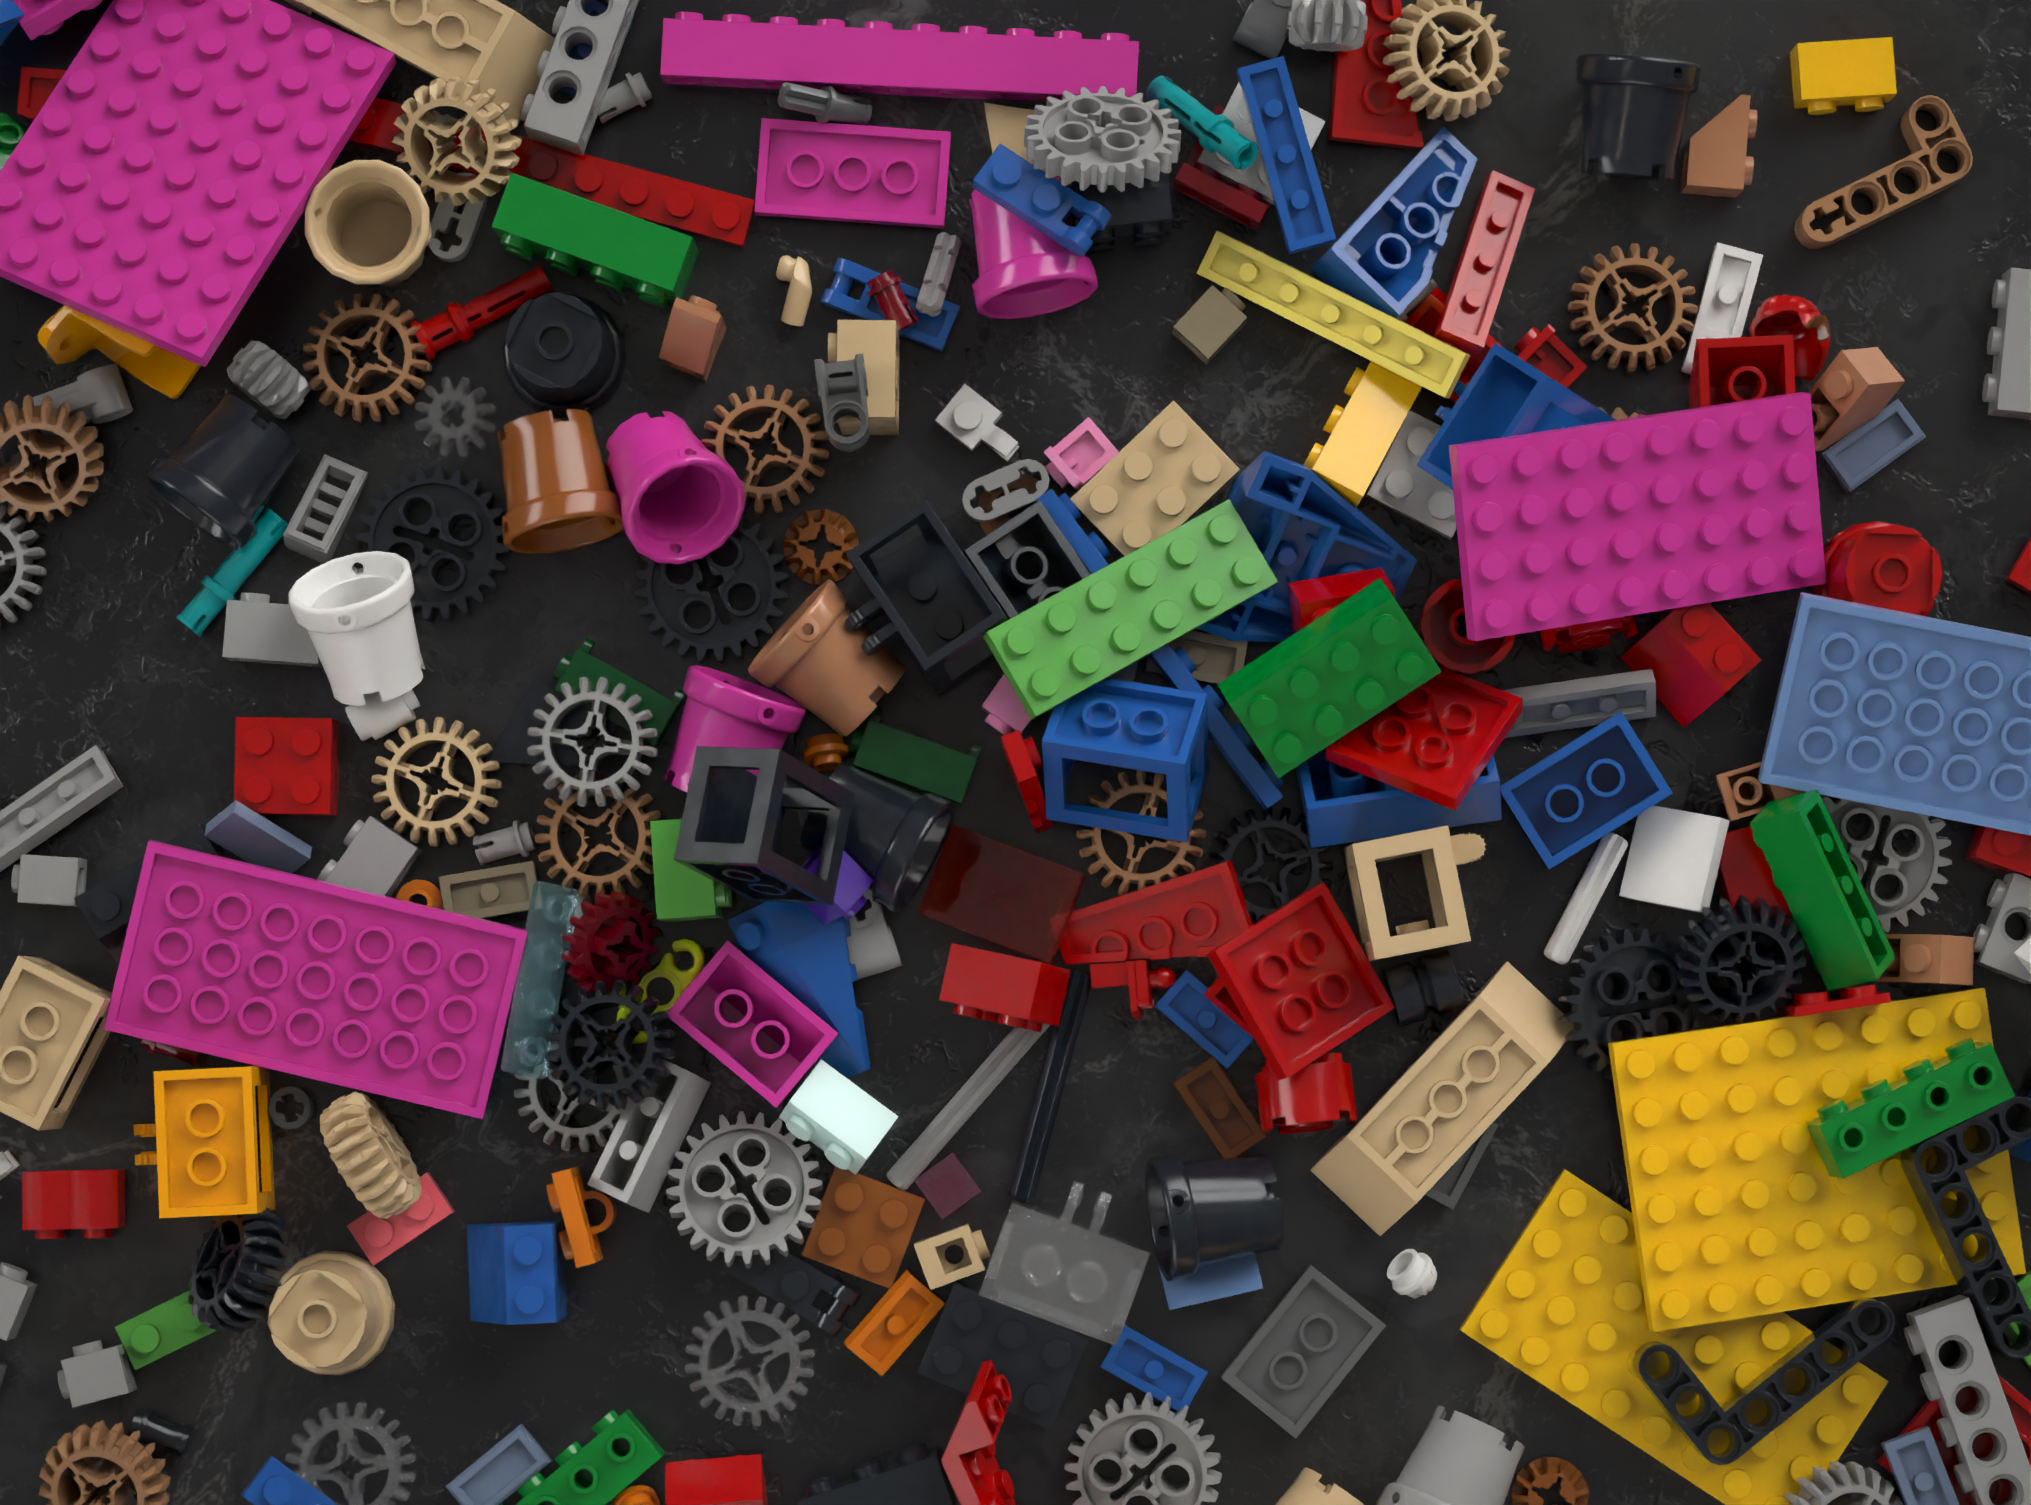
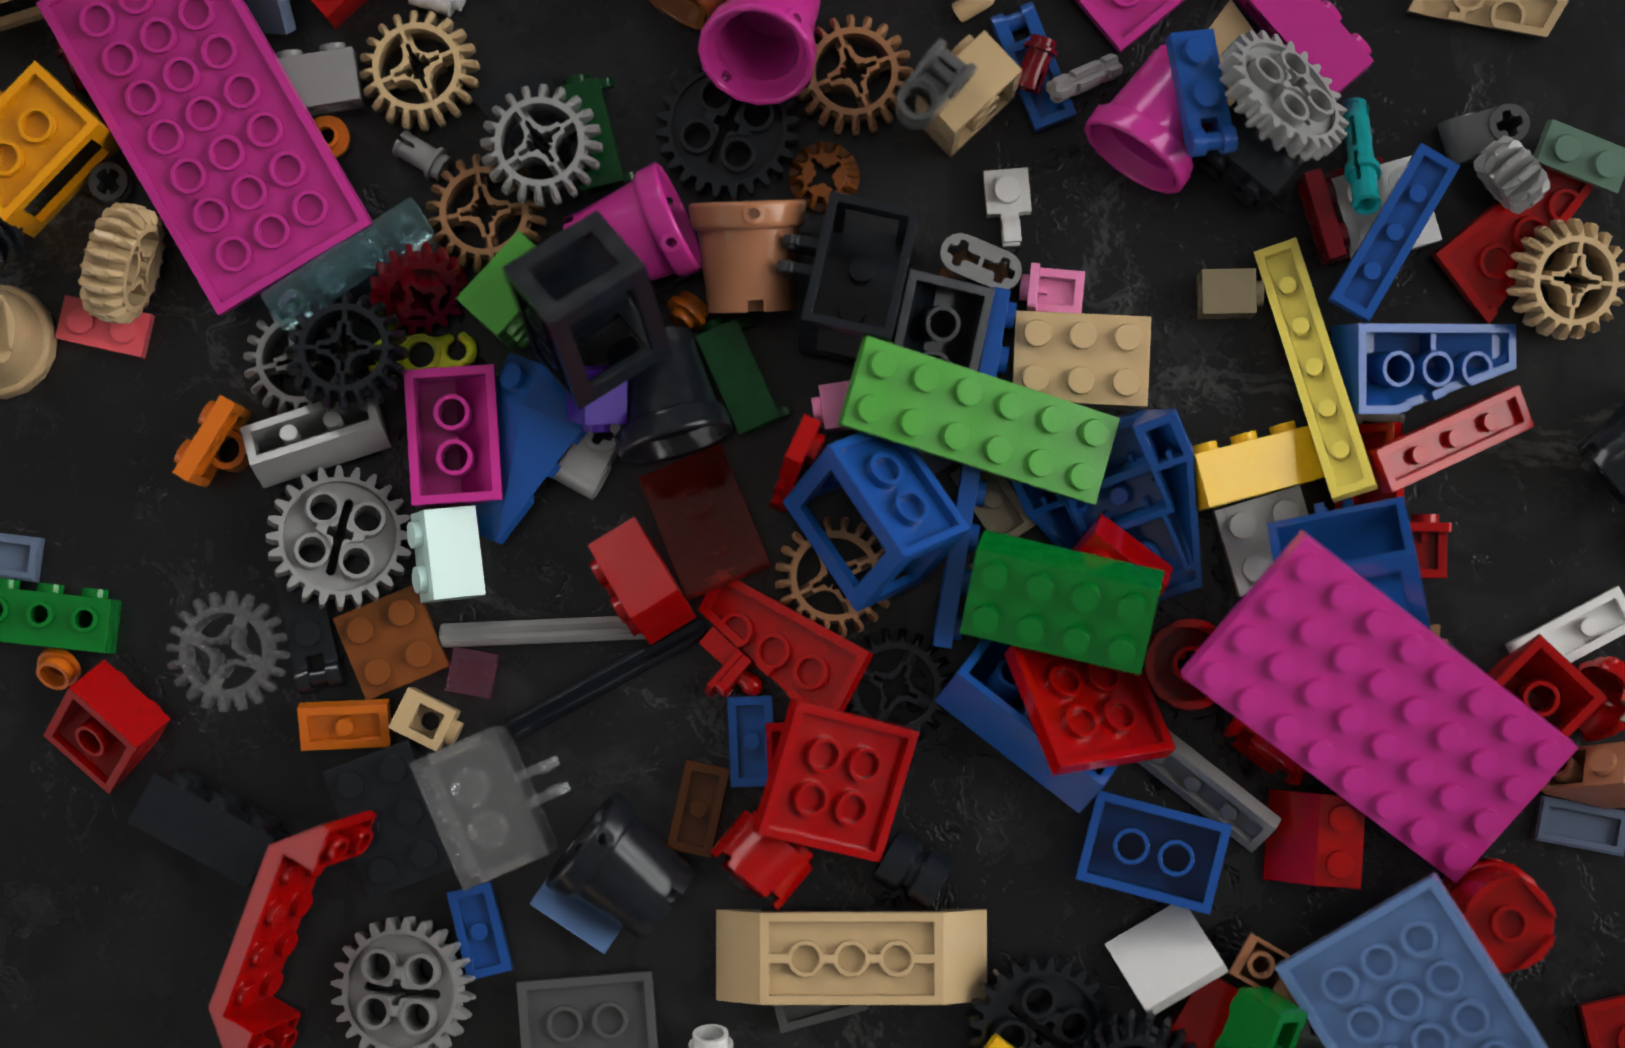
camera: 55 degrees right, 0 degrees up
(489, 890) = (378, 174): dark tan plate -> none
(516, 1272) = (138, 440): blue slope -> none
(1439, 857) = (1012, 796): tan piece -> none
(1585, 898) = (1080, 922): white axle -> none
(1621, 289) = (1523, 551): medium nougat gear -> none

